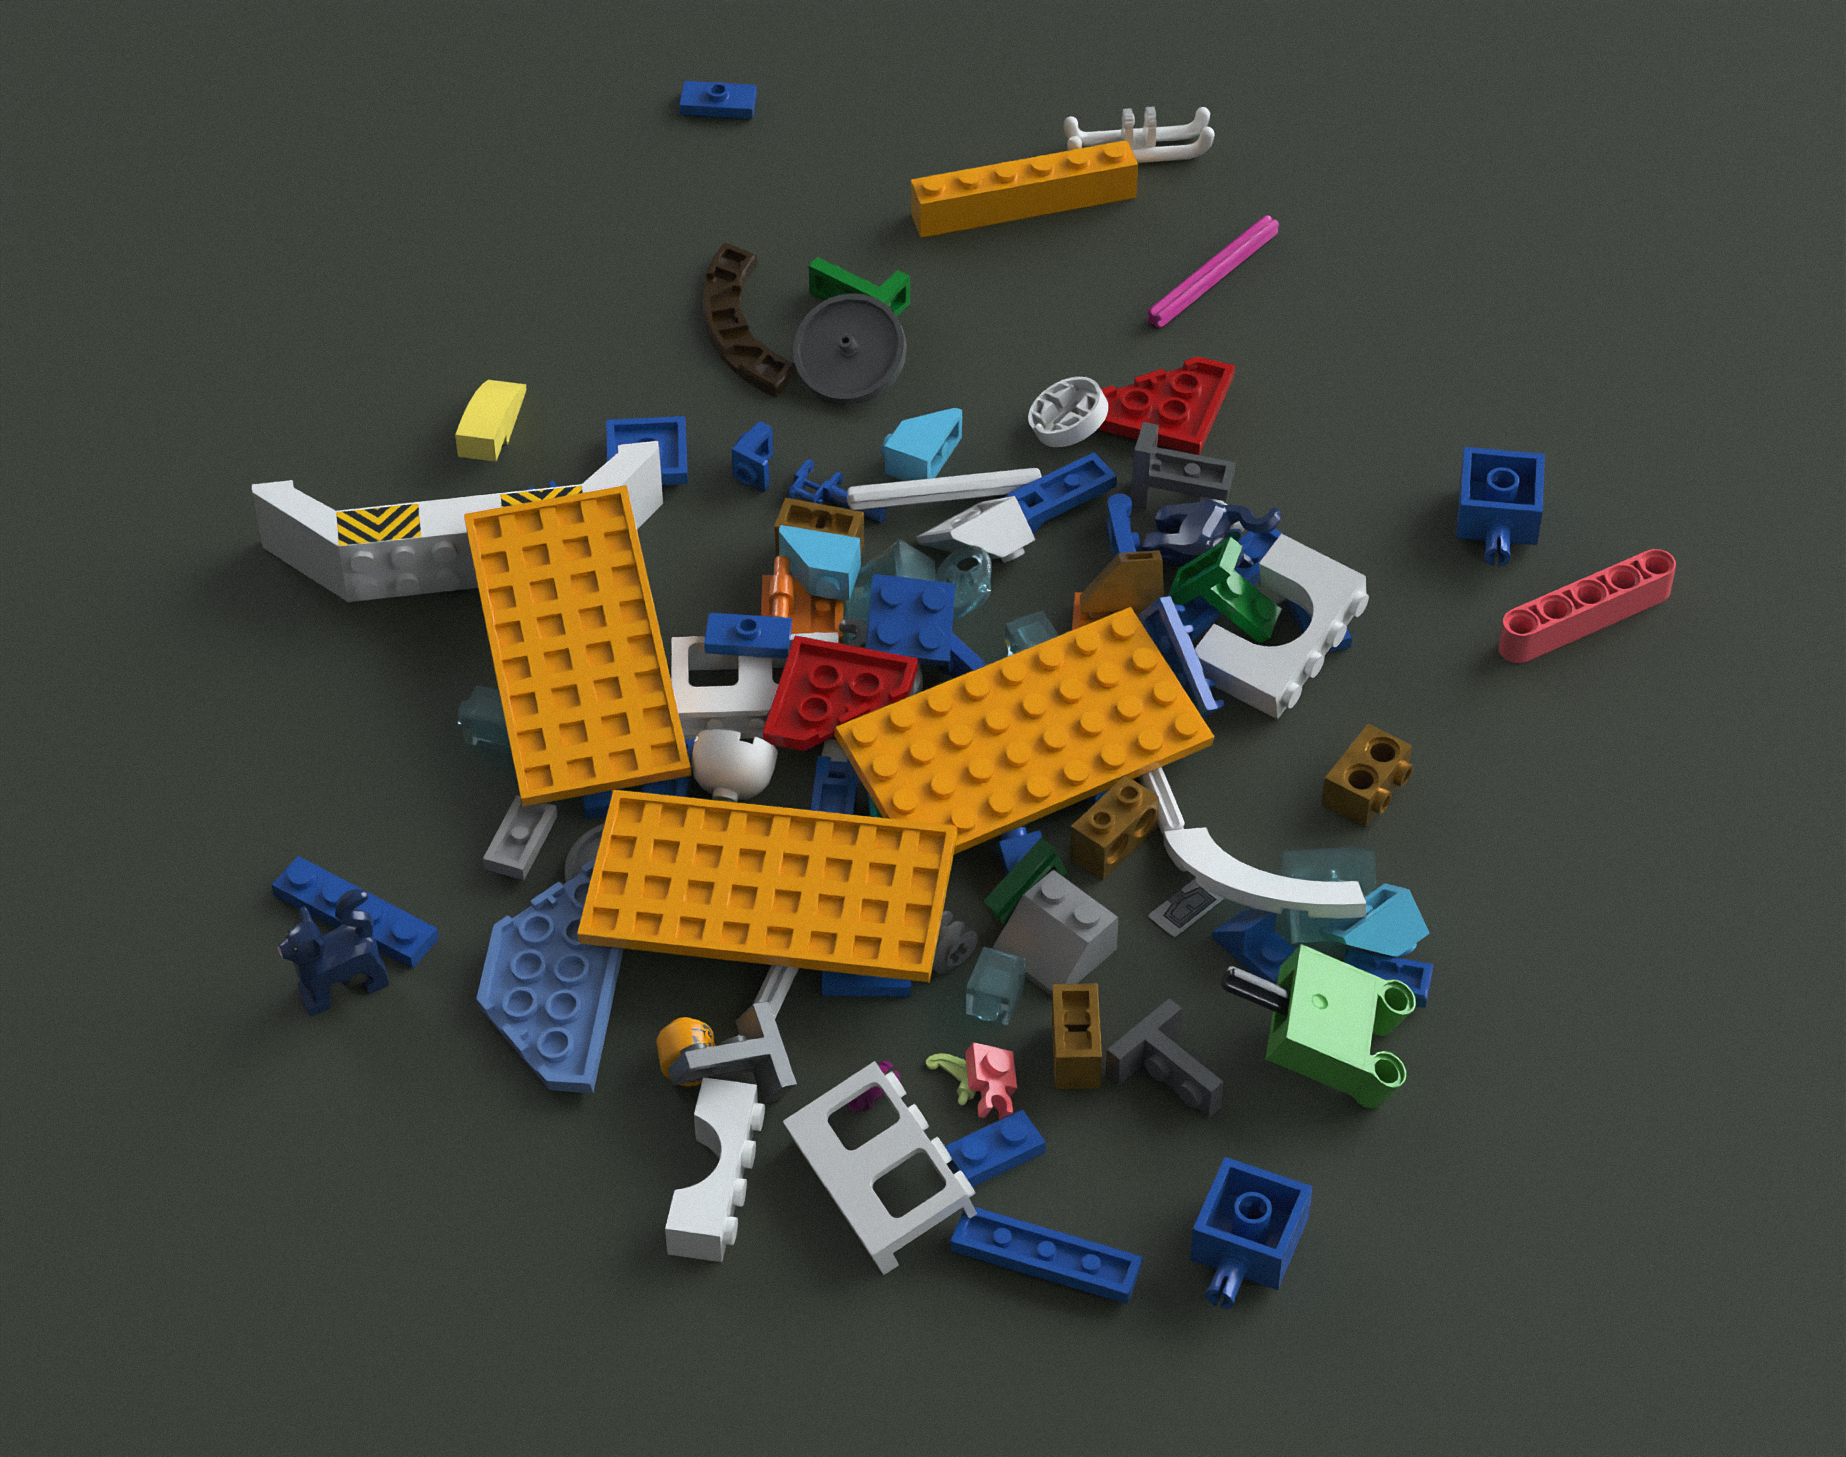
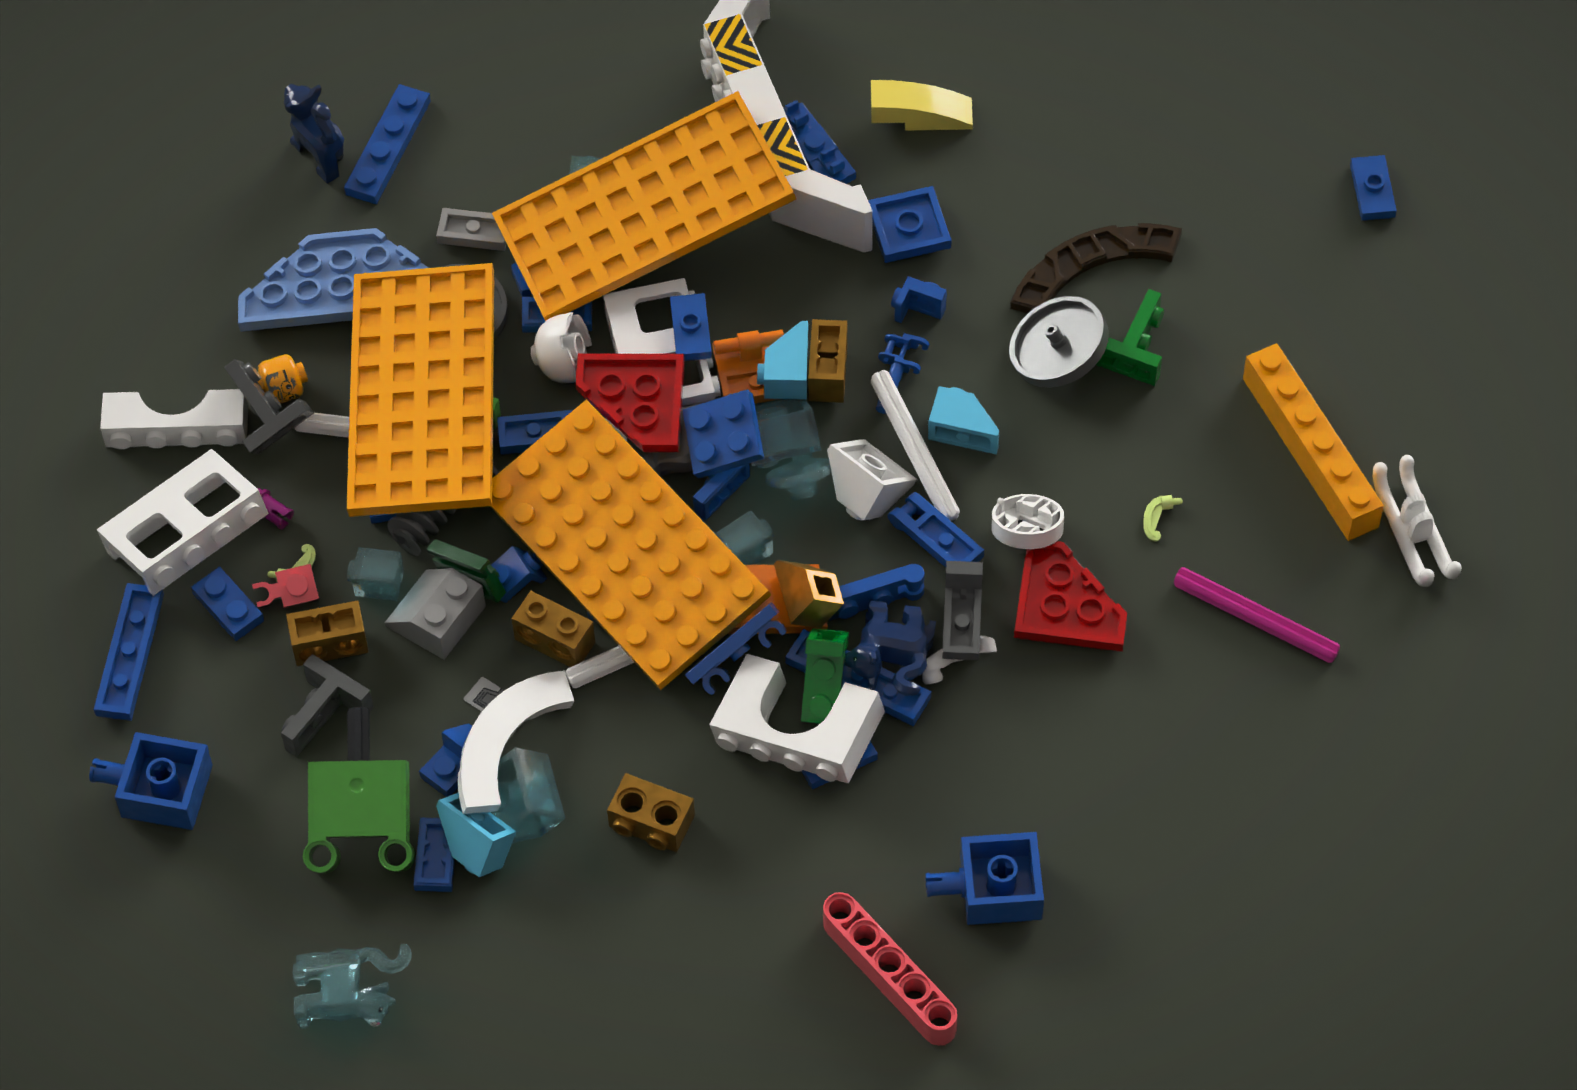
camera: 80 degrees right, 10 degrees up
(1073, 328) = (1153, 513): none -> yellowish green piece
(1543, 1084) = (340, 985): none -> clear light blue animal

